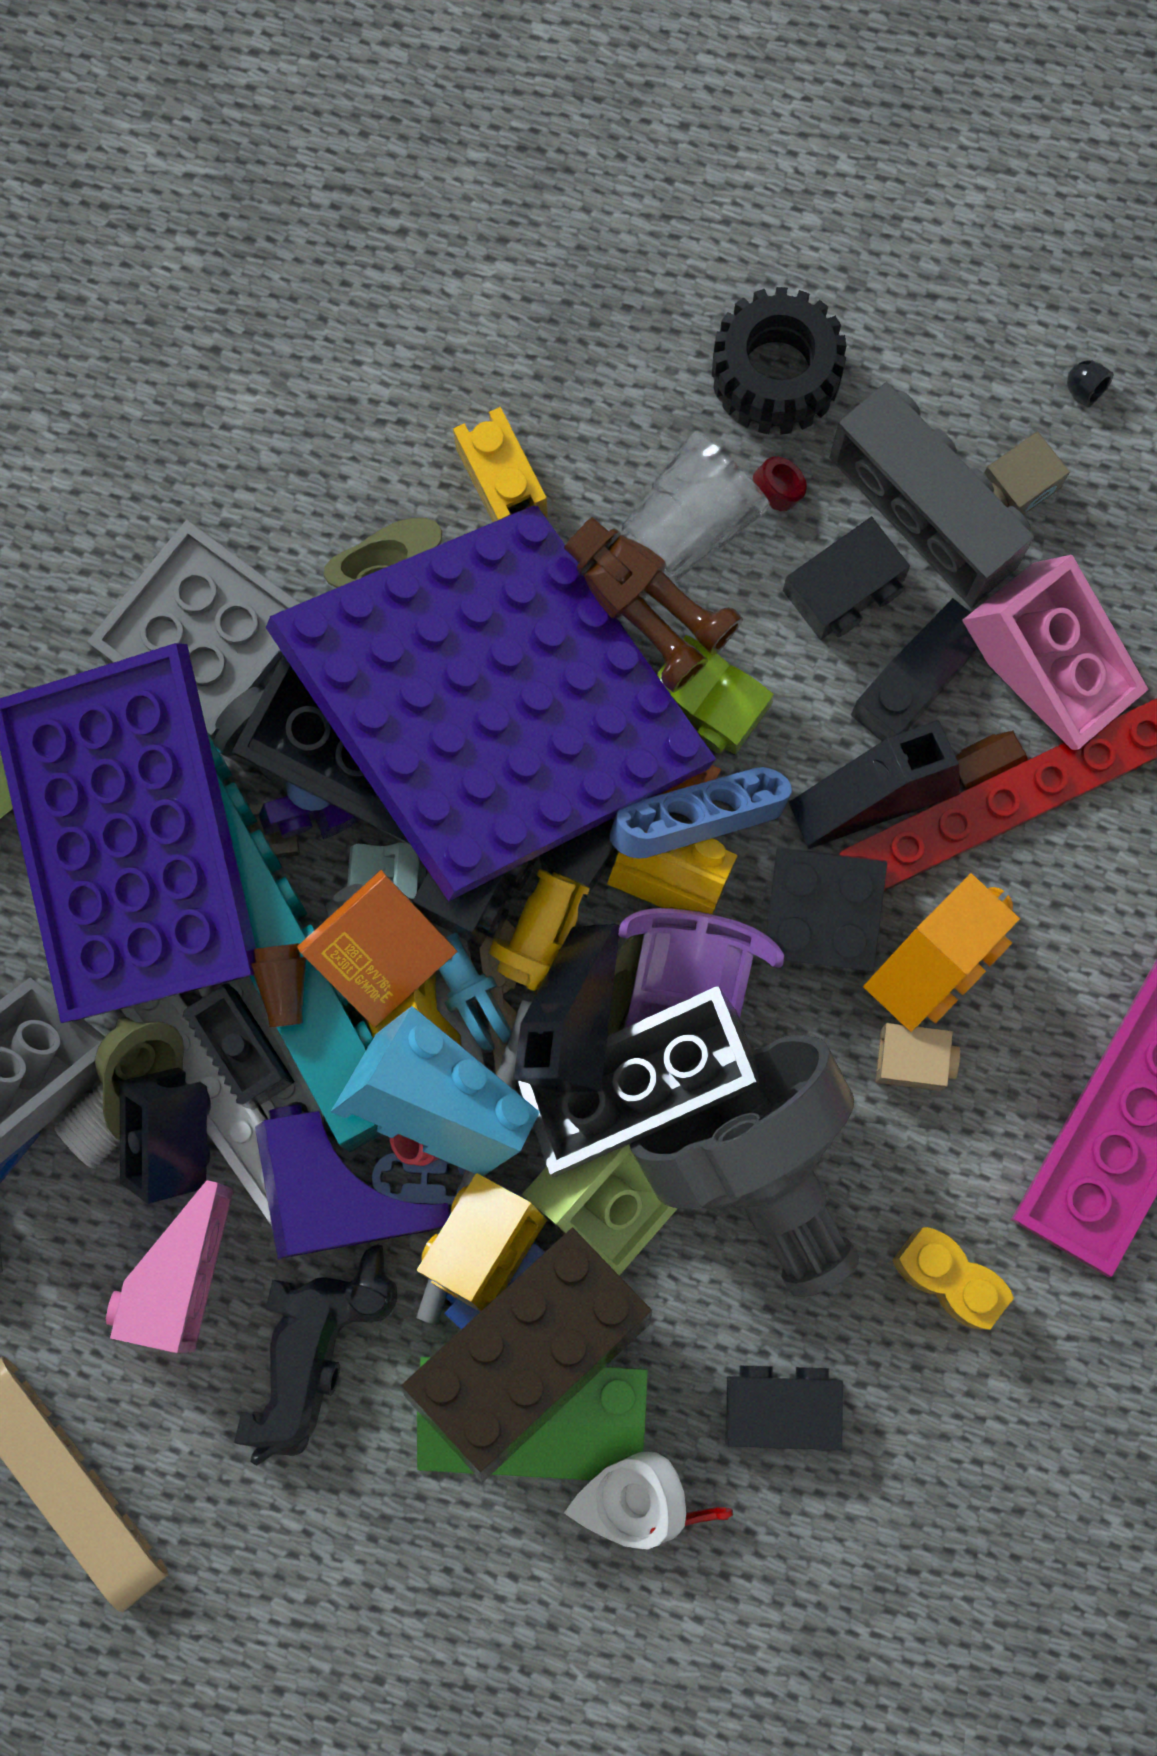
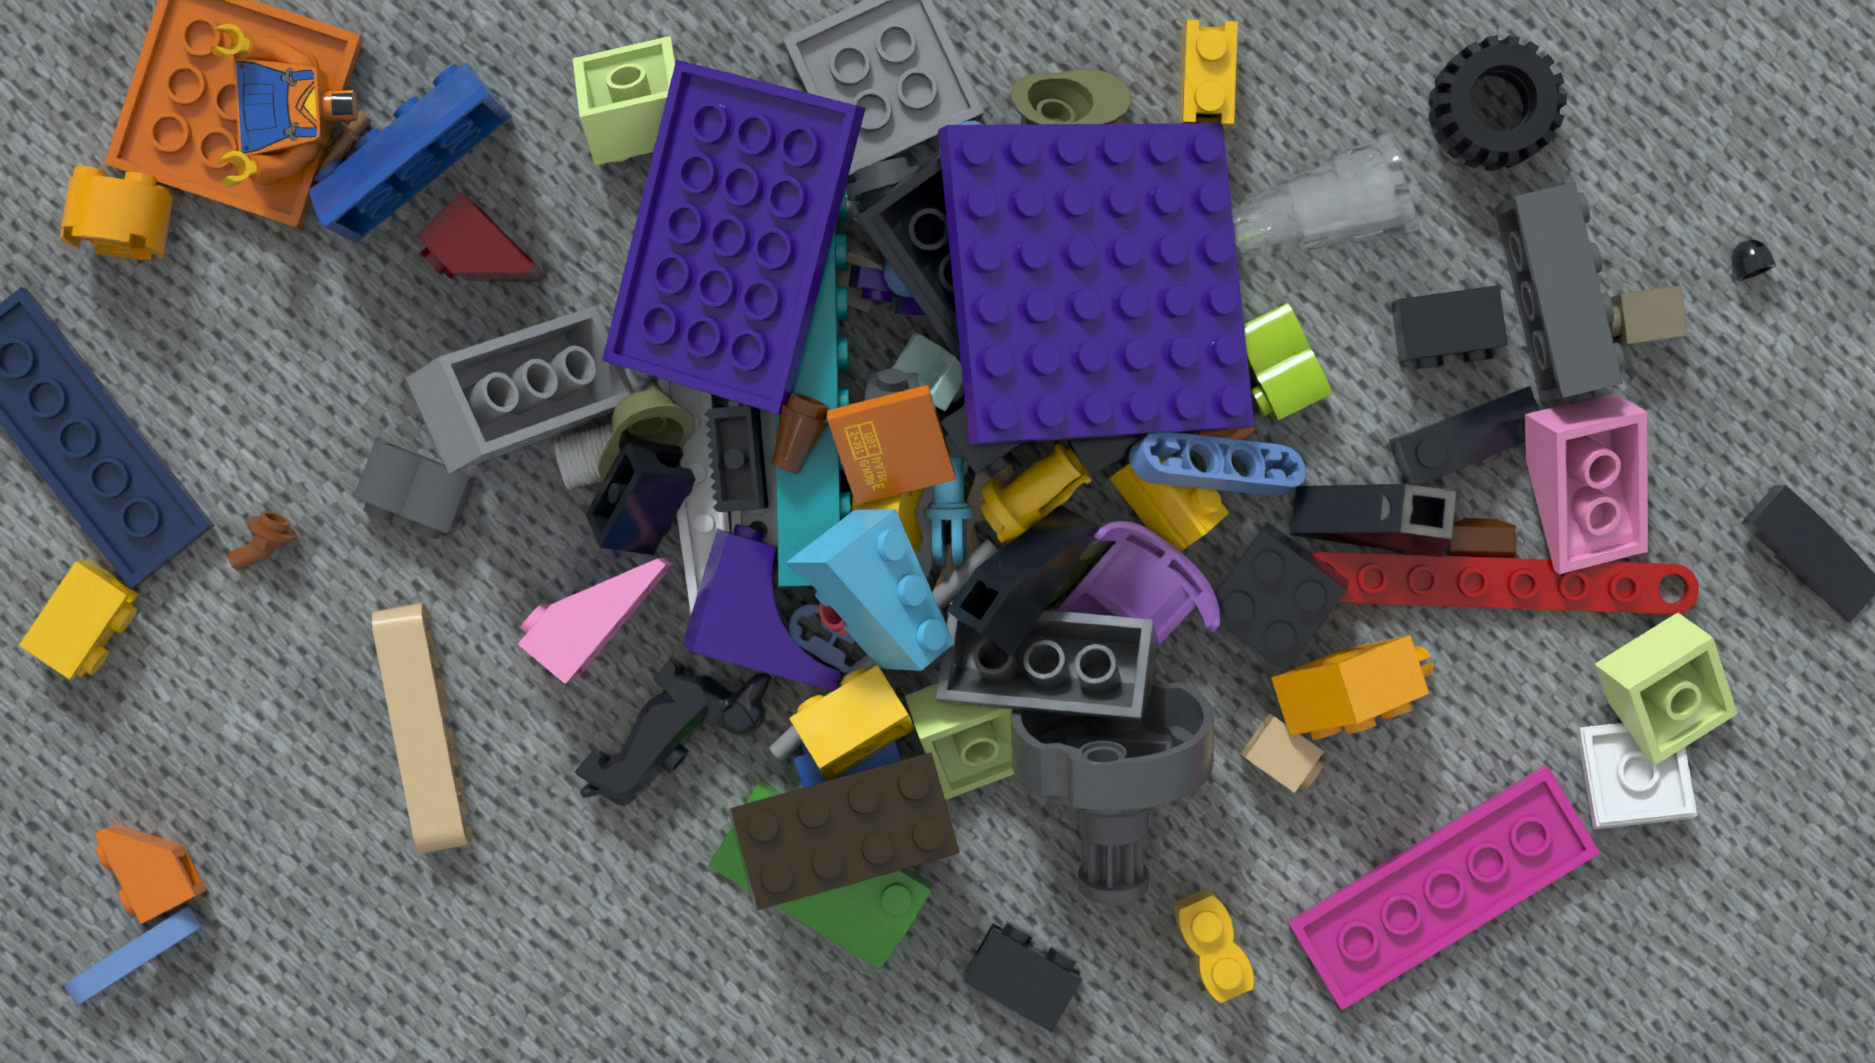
camera: 30 degrees right, 10 degrees up
(622, 577) = (1263, 228): reddish brown piece -> none
(638, 1503) = (869, 986): white piece -> none
(780, 482) = (1439, 210): dark red tile -> none

